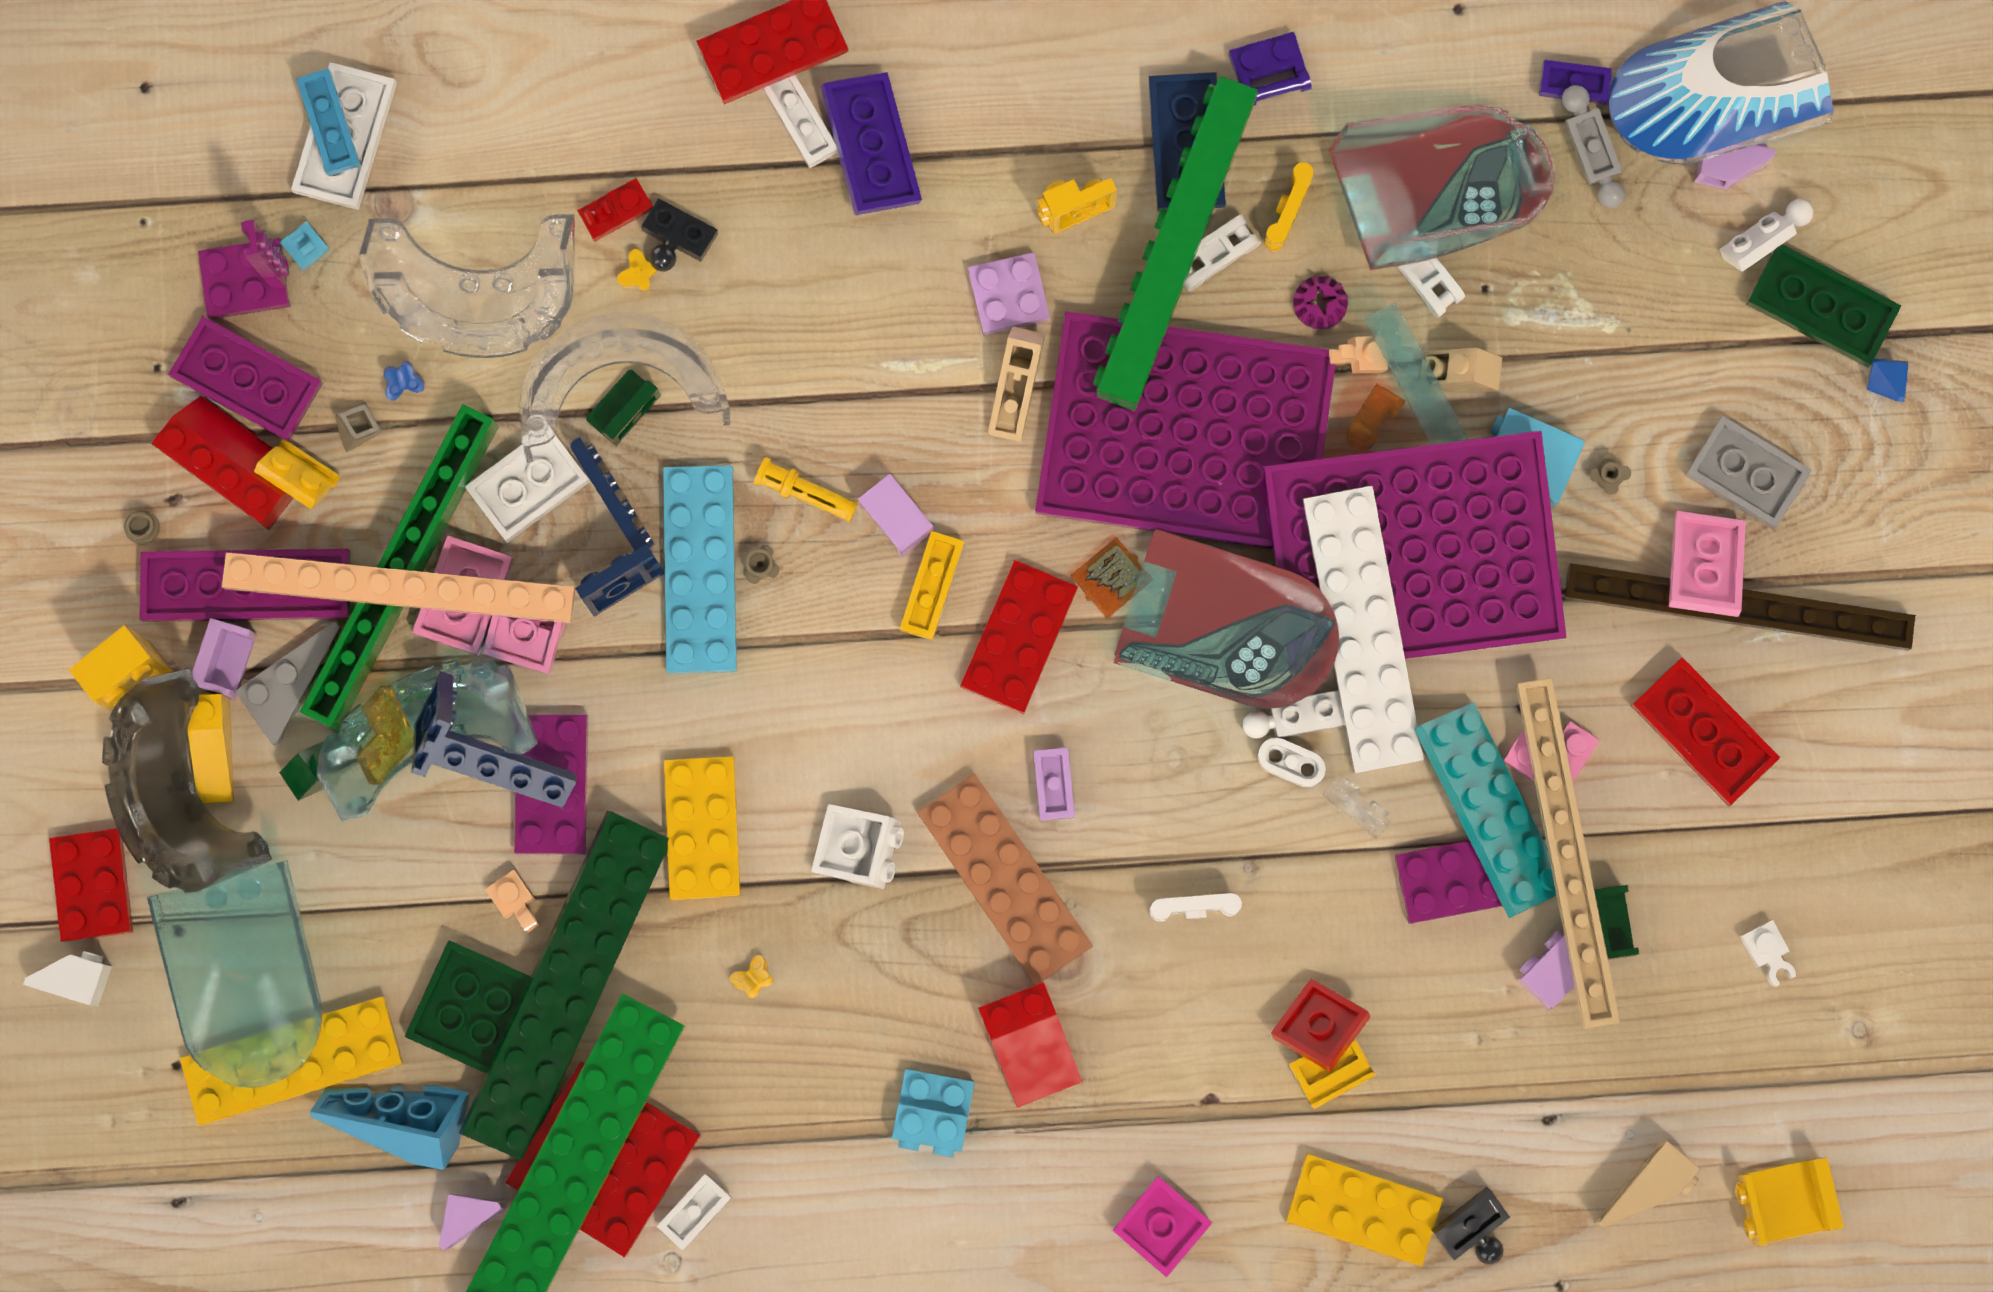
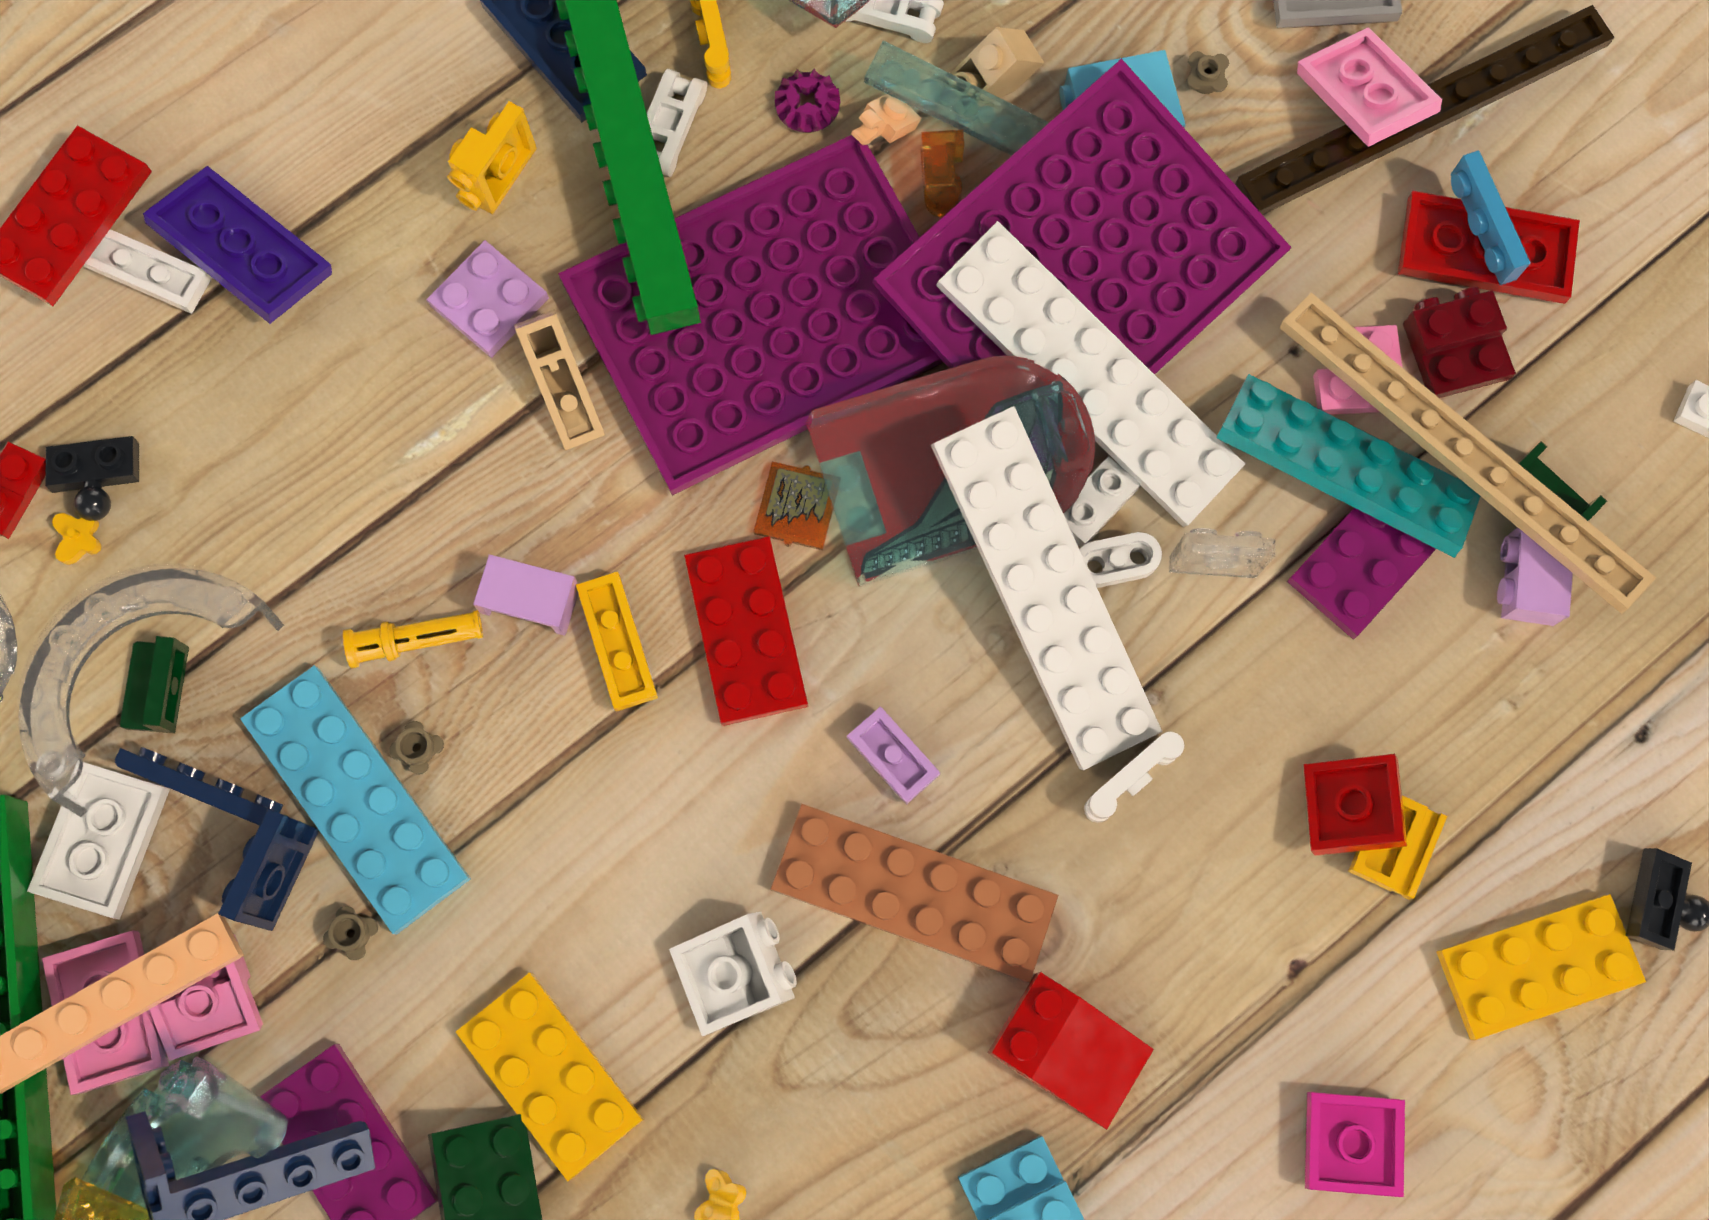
camera: 40 degrees left, 5 degrees down
(632, 648) = (337, 934): none -> dark tan plate
(1226, 748) = (1046, 588): none -> white plate
(1632, 782) = (1459, 342): none -> dark red plate
(1711, 712) = (1489, 218): none -> dark azure plate

